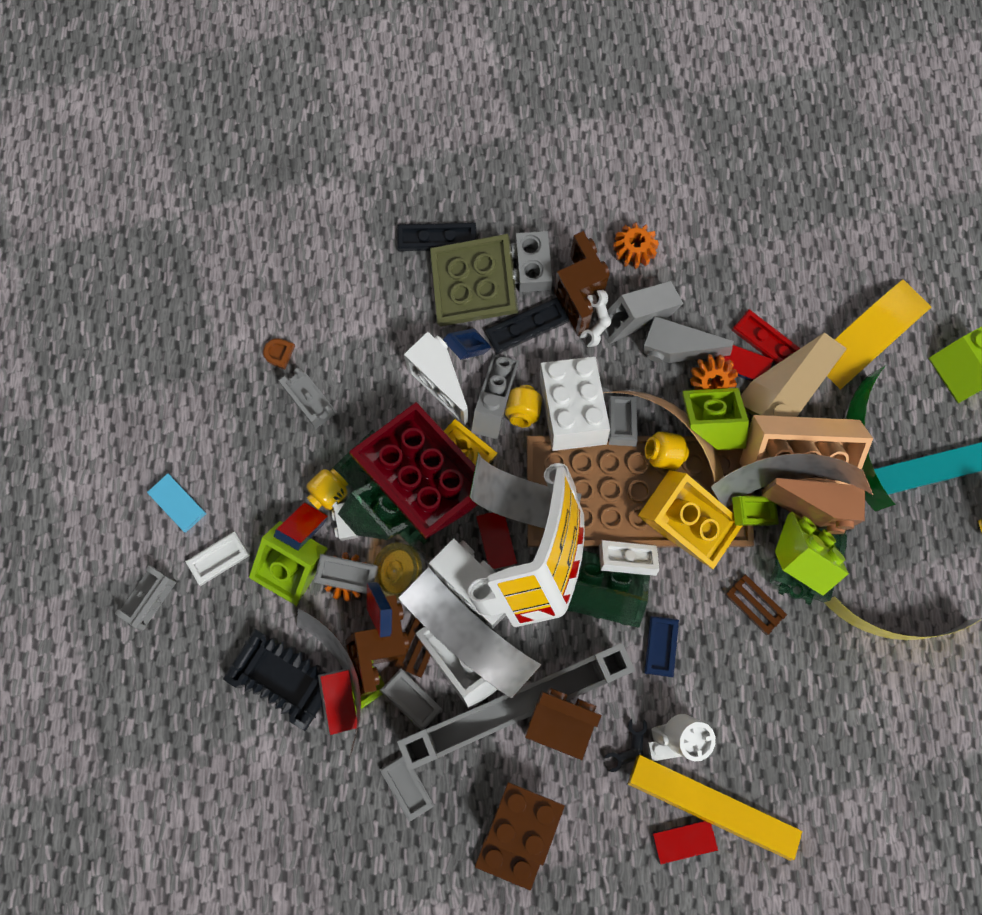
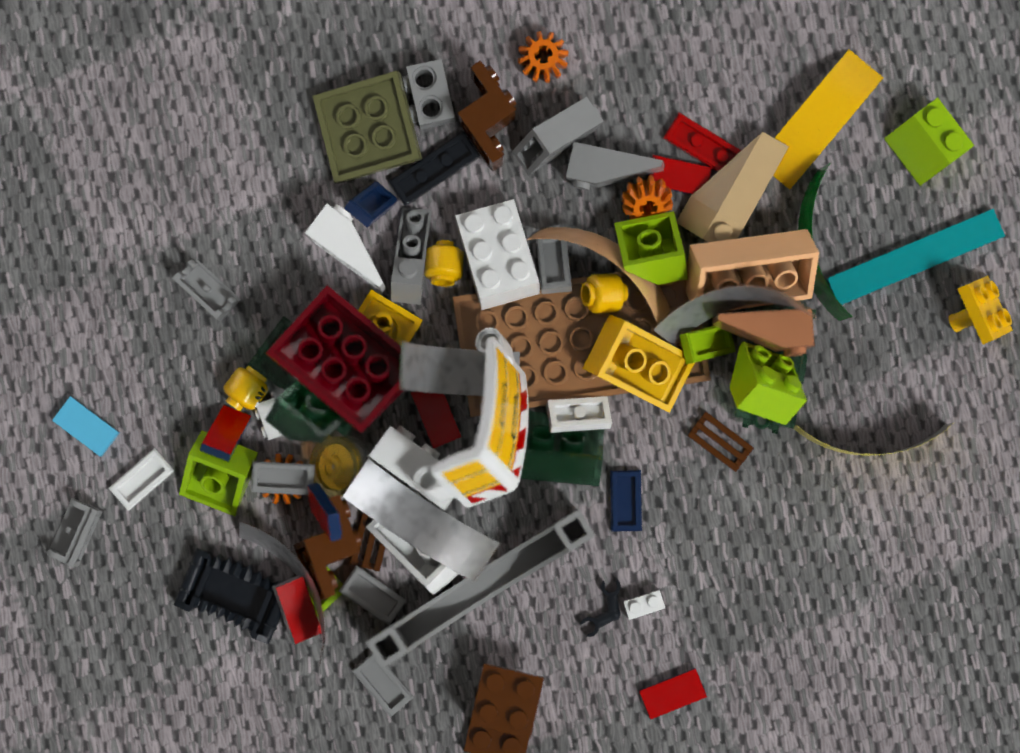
camera: 10 degrees left, 10 degrees up
(278, 352) = (163, 241): dark orange tile -> none
(426, 236) = (315, 78): black tile -> none
(562, 723) = (530, 597): reddish brown bracket -> none
(604, 319) = (515, 147): white arm -> none
(686, 737) = (659, 590): white piece -> none
(715, 808) = (698, 656): yellow tile -> none

